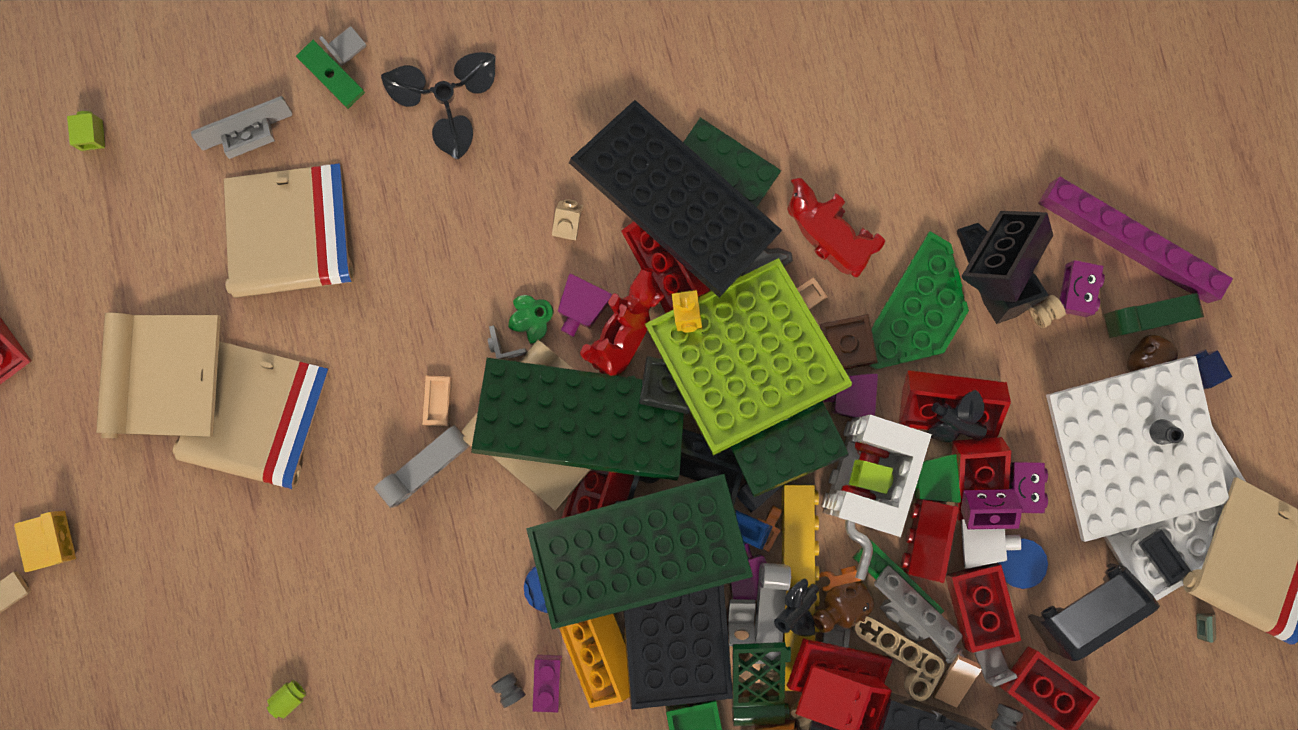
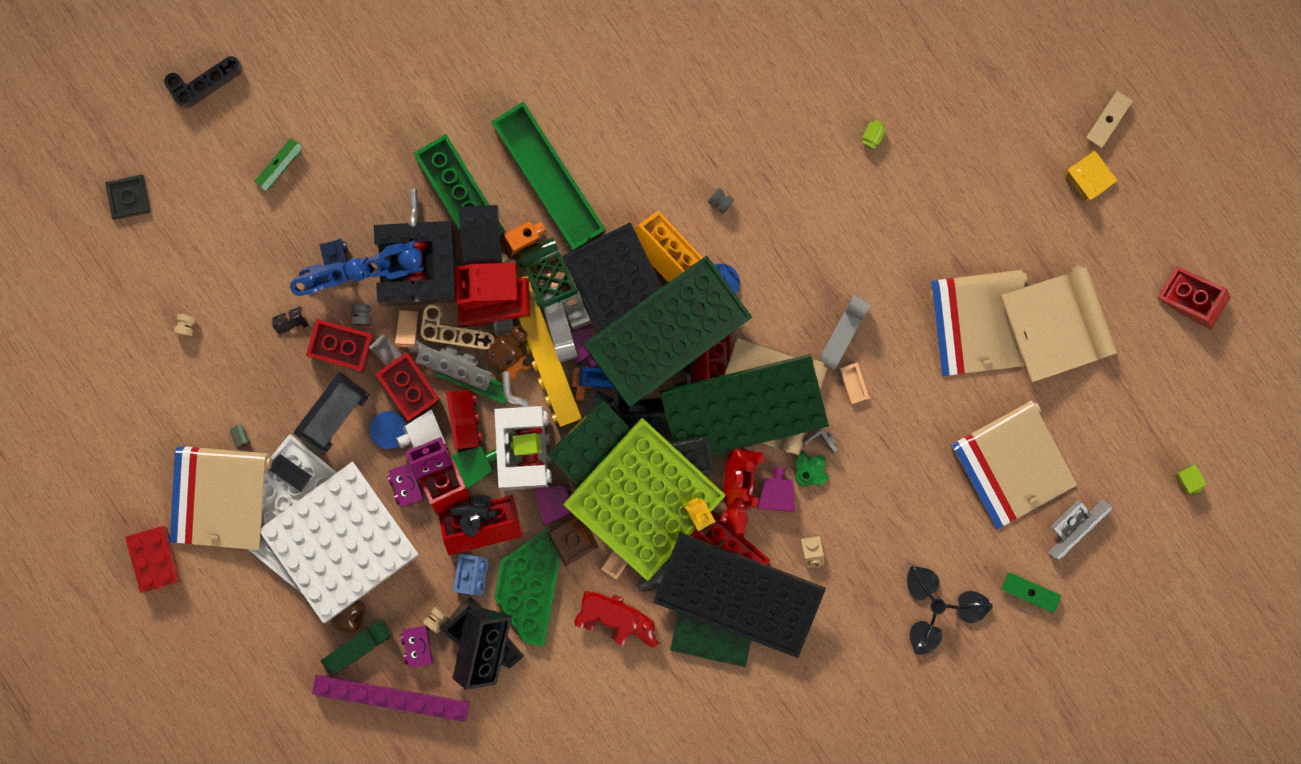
camera: 160 degrees right, 0 degrees up
(345, 45) = (1029, 618): light grey bracket -> none
(547, 683) = (695, 216): magenta brick -> none
(797, 614) = (540, 332): black plant -> none
(986, 349) = (470, 574): none -> medium blue bracket
(1165, 432) = (332, 559): black cone -> none
(1211, 368) = (303, 623): clear blue brick -> none

